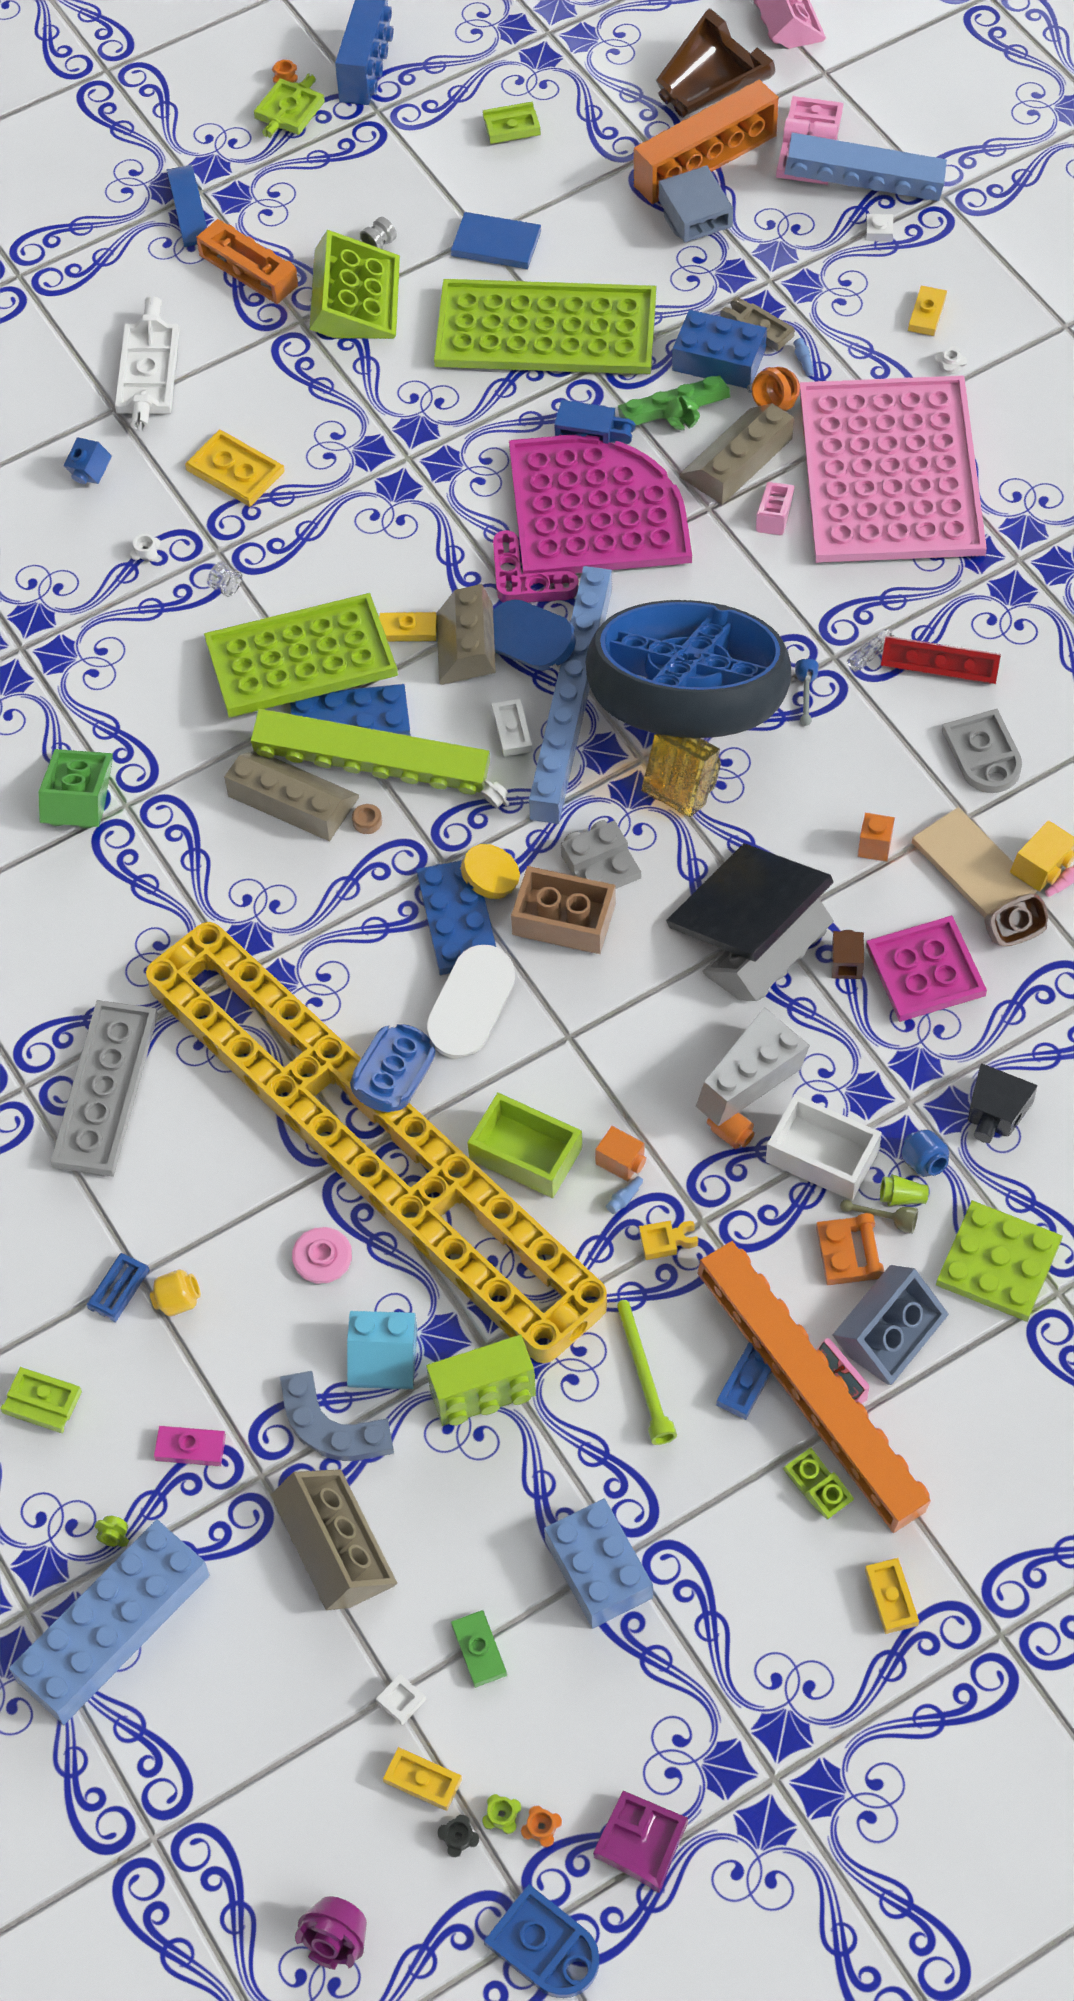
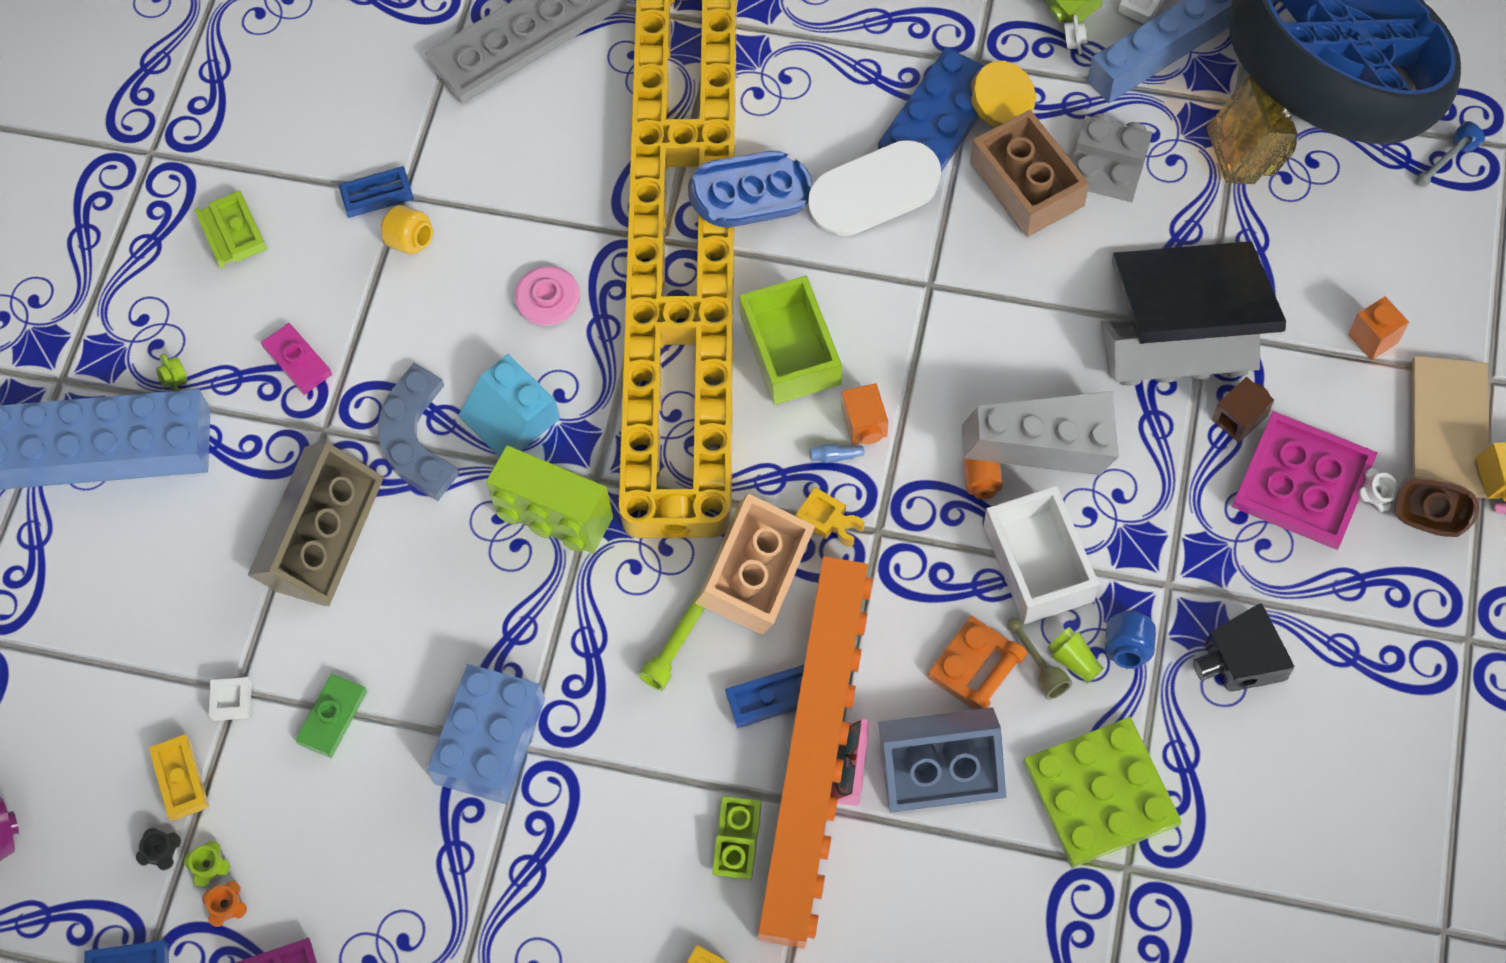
camera: 45 degrees right, 5 degrees up
(657, 1305) = (755, 564): none -> light nougat brick
(975, 937) = (1387, 489): none -> white plate

